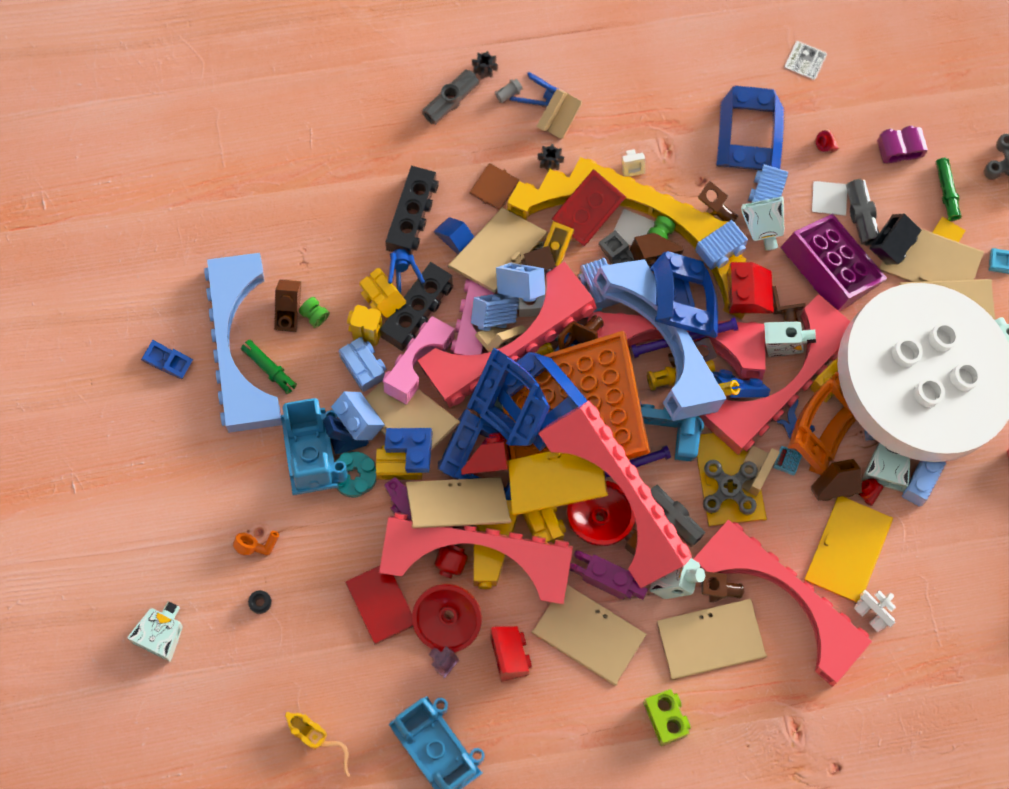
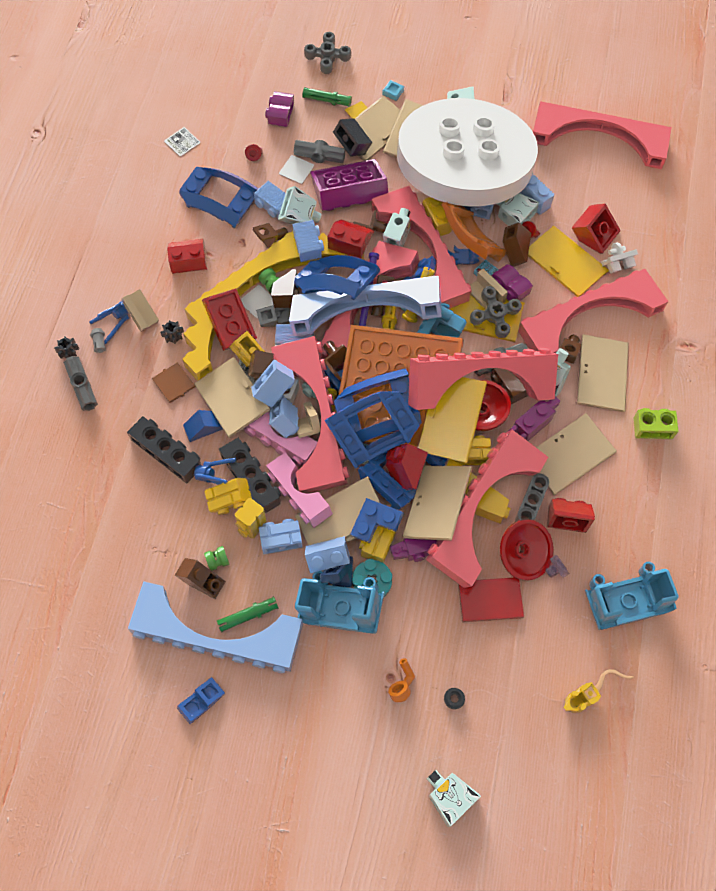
camera: 65 degrees left, 5 degrees down
(451, 560) = (480, 531): red head -> none
(520, 602) = (535, 493): none -> dark grey beam
(633, 163) = (206, 277): tile -> none
(654, 130) = (187, 256): none -> red slope
(780, 493) = (514, 283): none -> magenta brick
(909, 568) = (596, 228): none -> red slope

